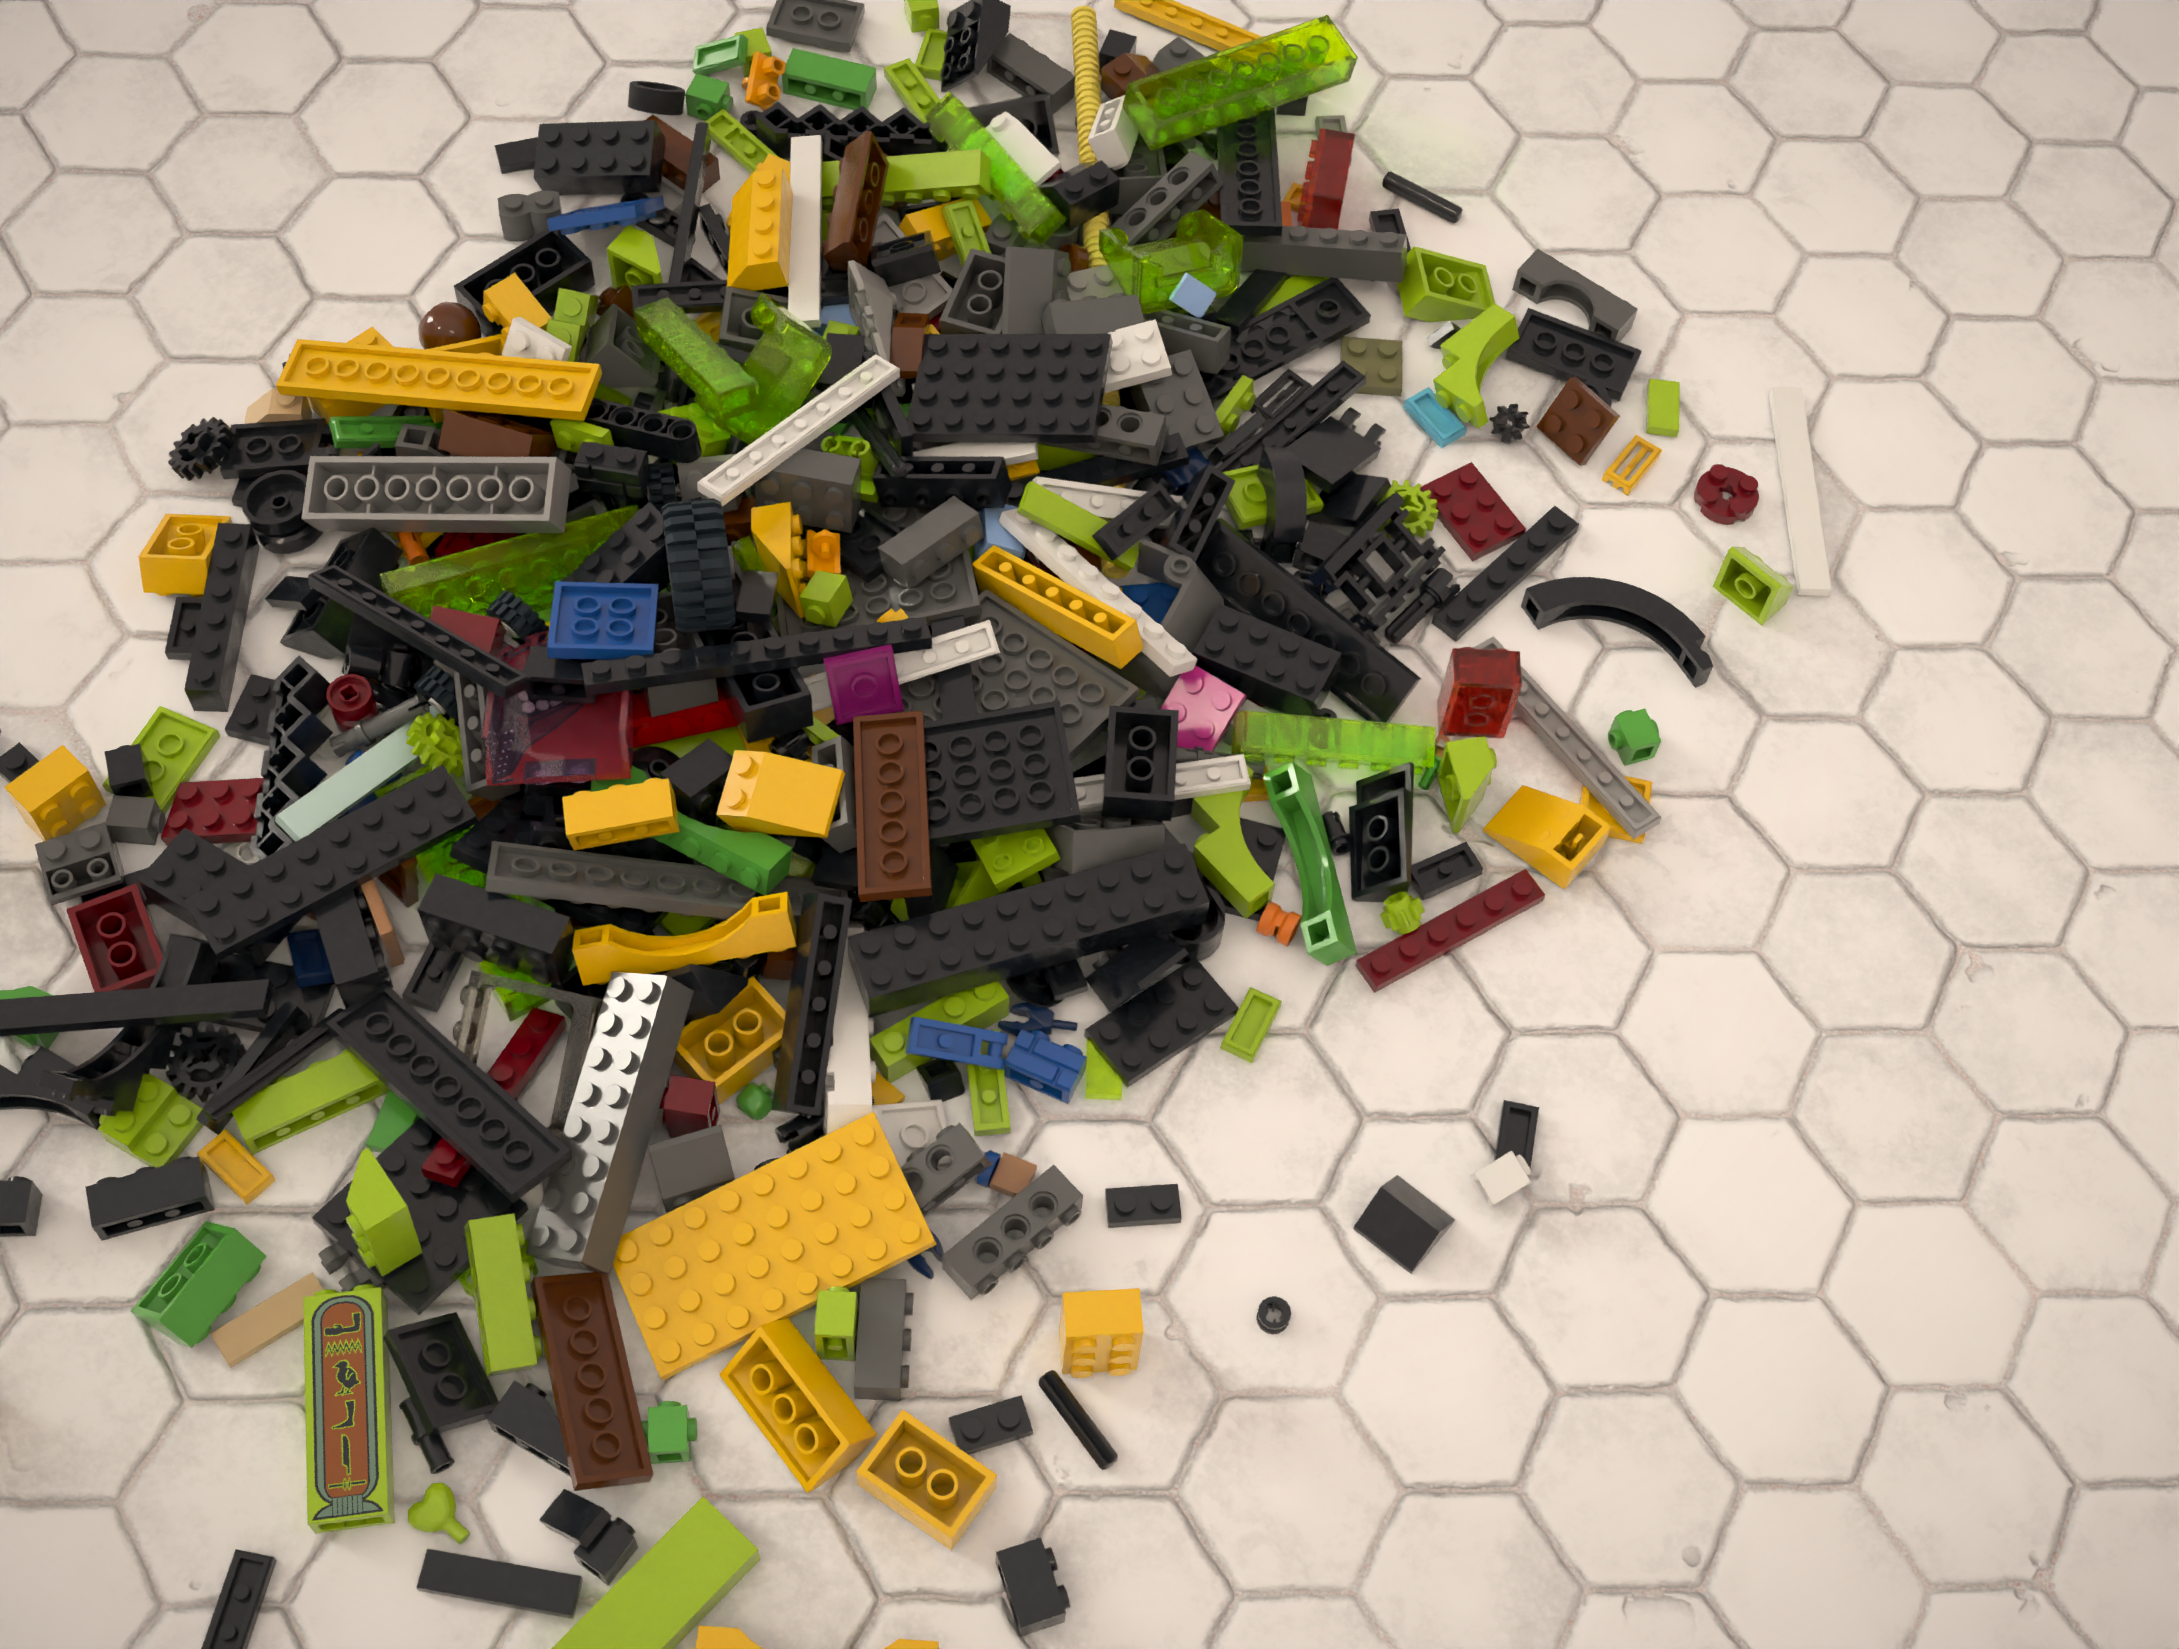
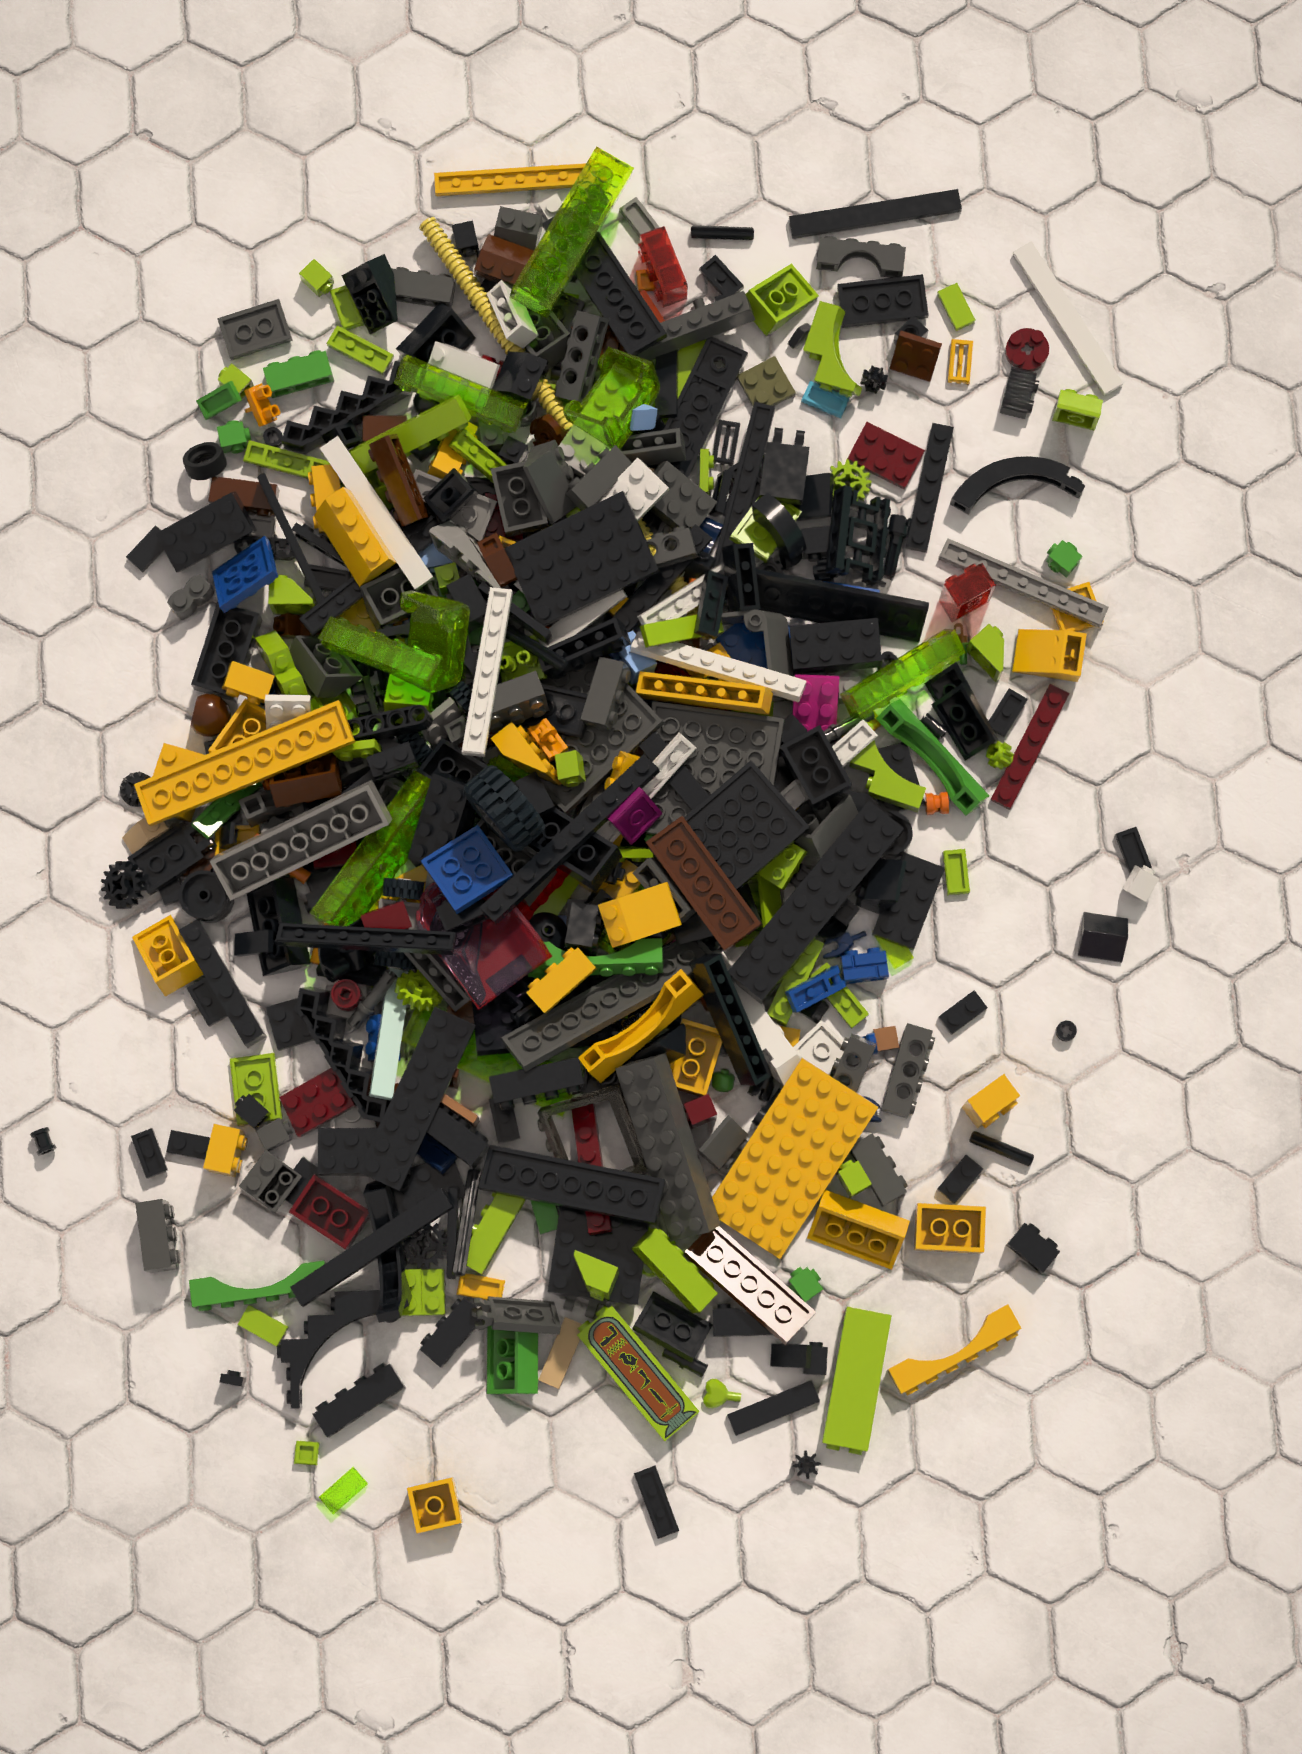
camera: 25 degrees left, 20 degrees up
(243, 1218) = (516, 1315): none -> dark grey tile
(1624, 270) = (875, 213): none -> black tile
(1686, 530) = (1018, 393): none -> black brick

